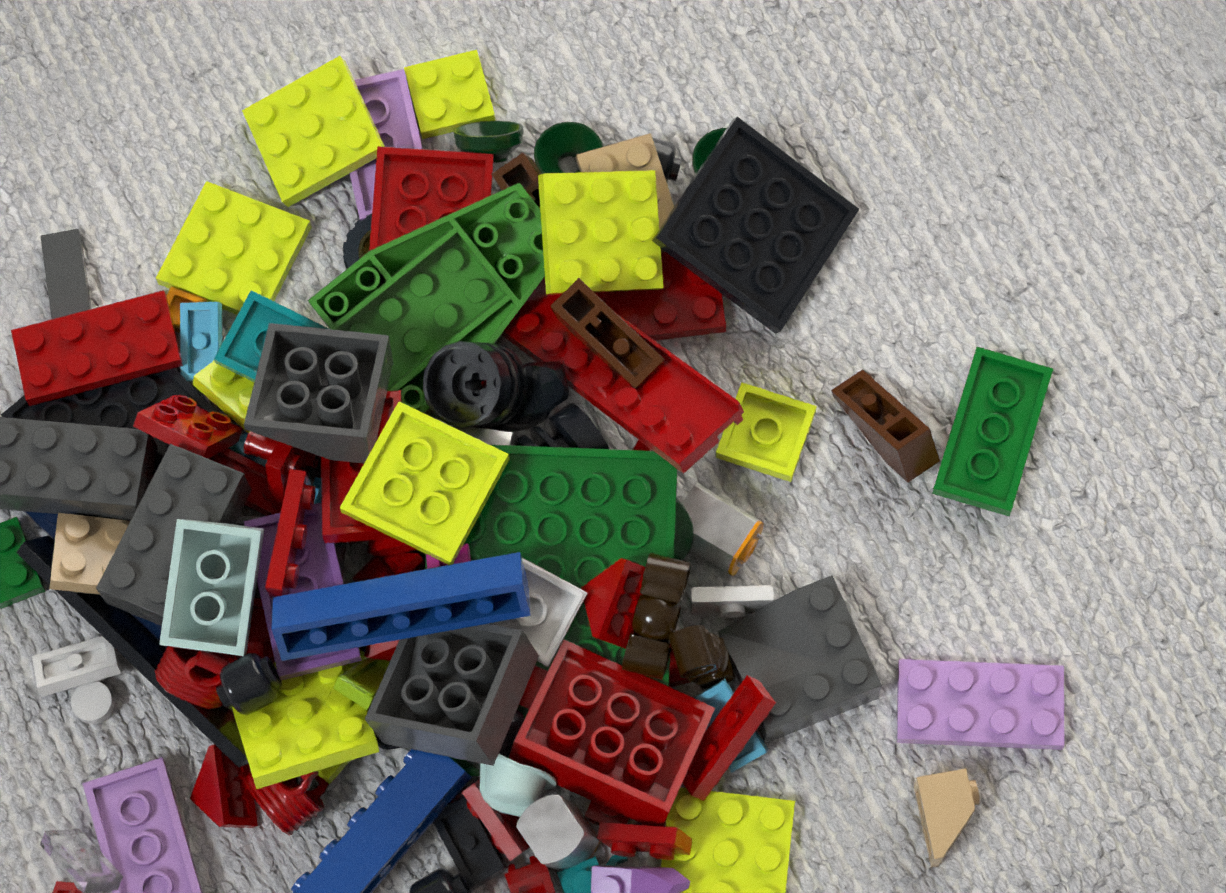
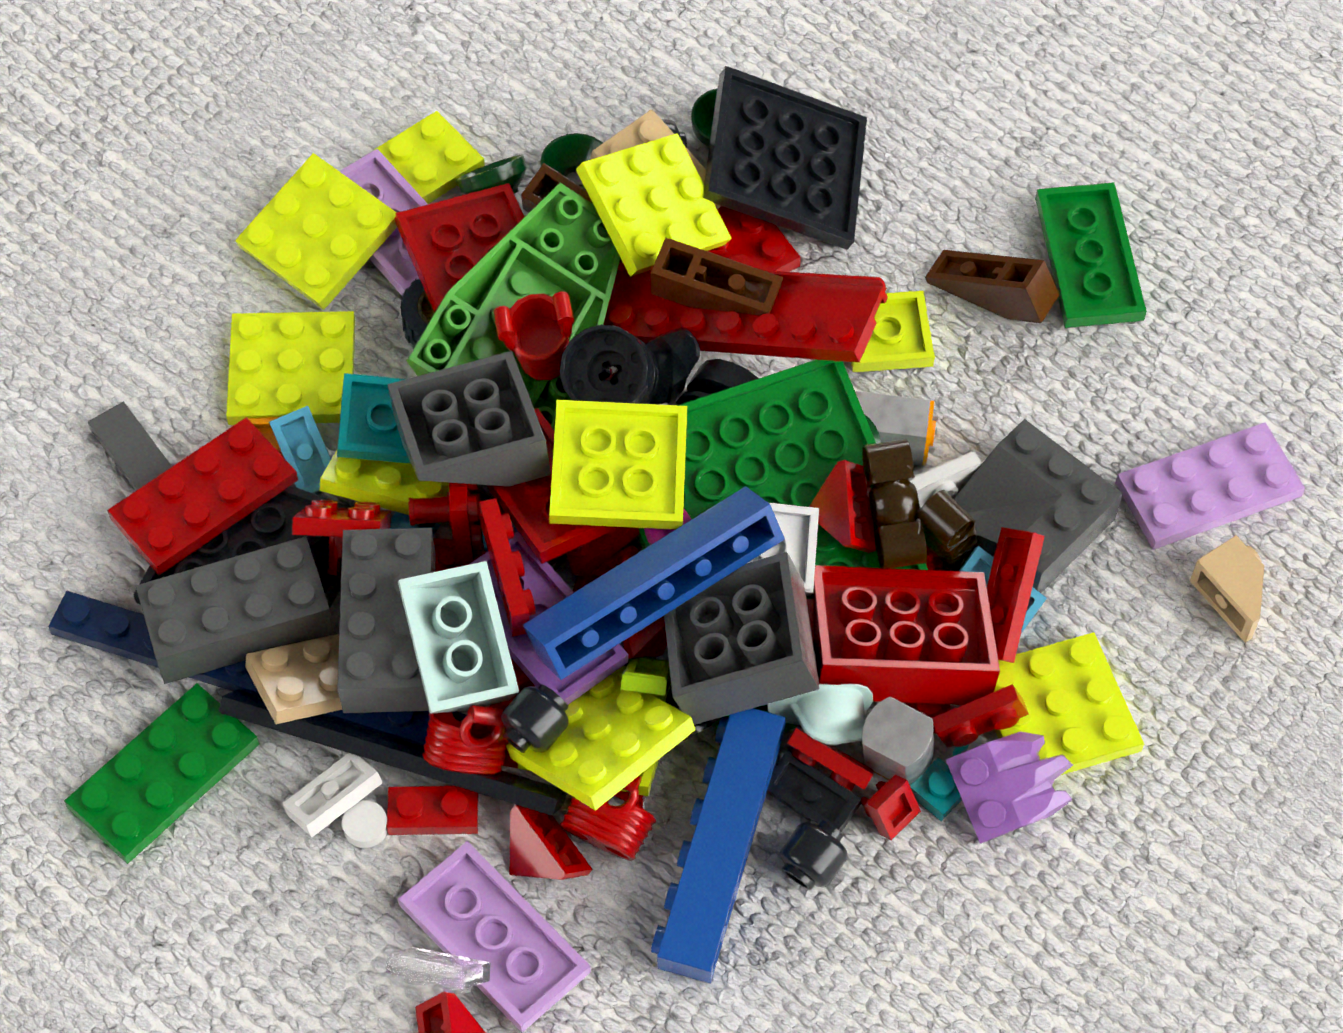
camera: 30 degrees left, 10 degrees down
(150, 714) = (432, 810): none -> red plate
(434, 318) = (537, 332): none -> red piece

